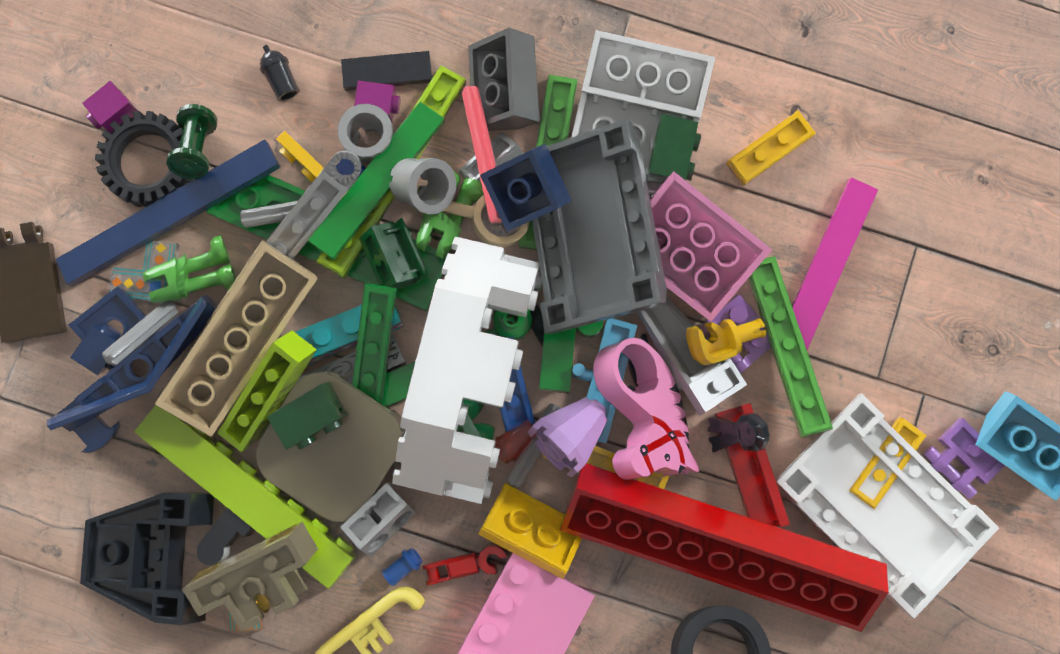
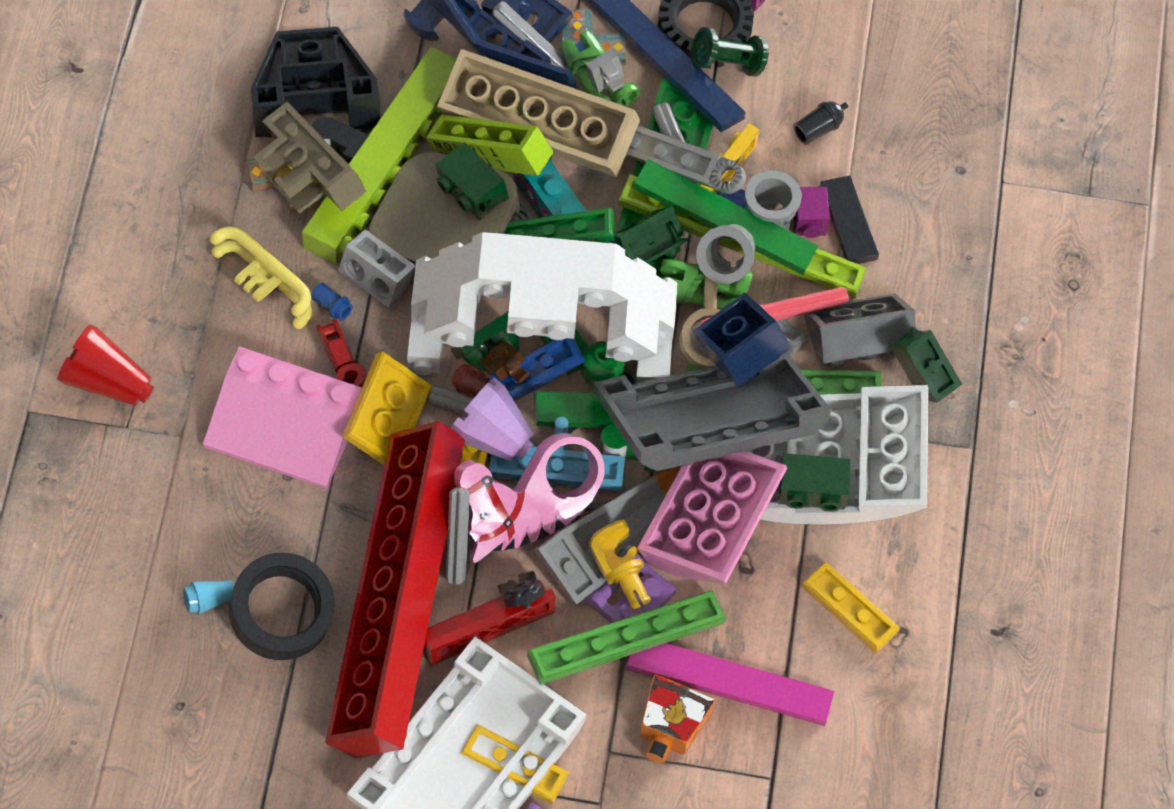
camera: 80 degrees right, 20 degrees down
(198, 263) = (606, 71): none -> light grey tile
(499, 418) = (505, 361): none -> reddish brown plate
(559, 31) = (926, 363): none -> dark green hinge
(678, 483) = (457, 535): none -> light grey axle
(863, 318) = (673, 718): none -> torso

